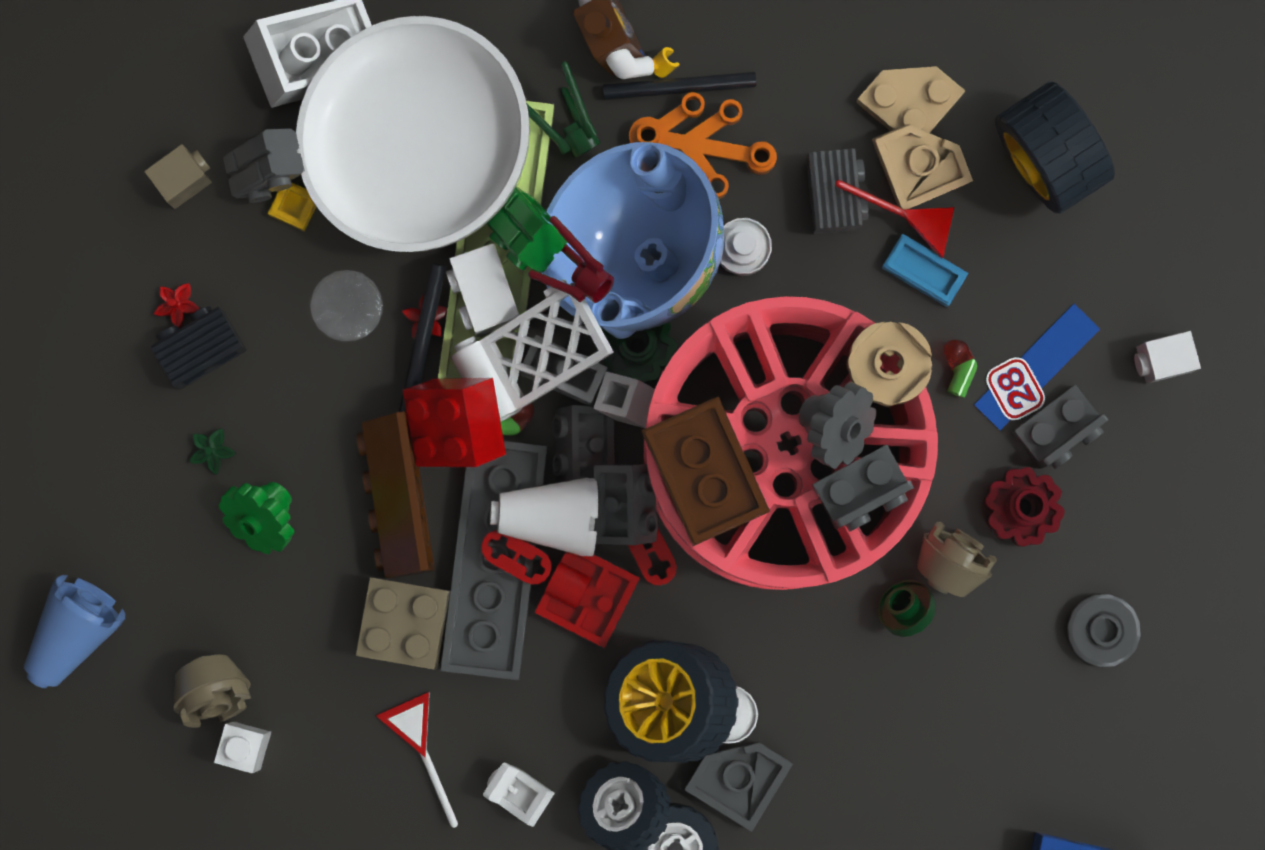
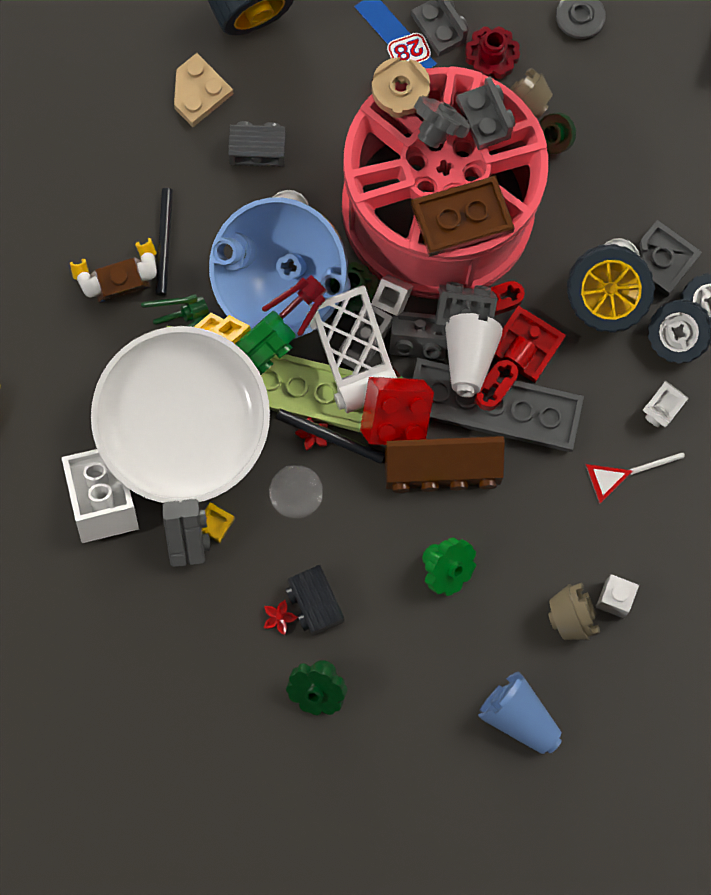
camera: 85 degrees left, 10 degrees down
(82, 362) = (317, 688): none -> dark green plant
(179, 175) = (182, 601): dark tan brick -> none
(211, 450) = (393, 602): dark green plant -> none
(403, 623) = (536, 471): dark tan brick -> none
(483, 289) = (301, 384): white brick -> none
(545, 173) = (229, 327): none -> yellow slope
(695, 141) = (205, 233): orange plant -> none
(920, 165) = (246, 87): tan plate -> none
(924, 270) = (319, 96): dark azure tile -> none
(930, 223) = (286, 87): red piece -> none

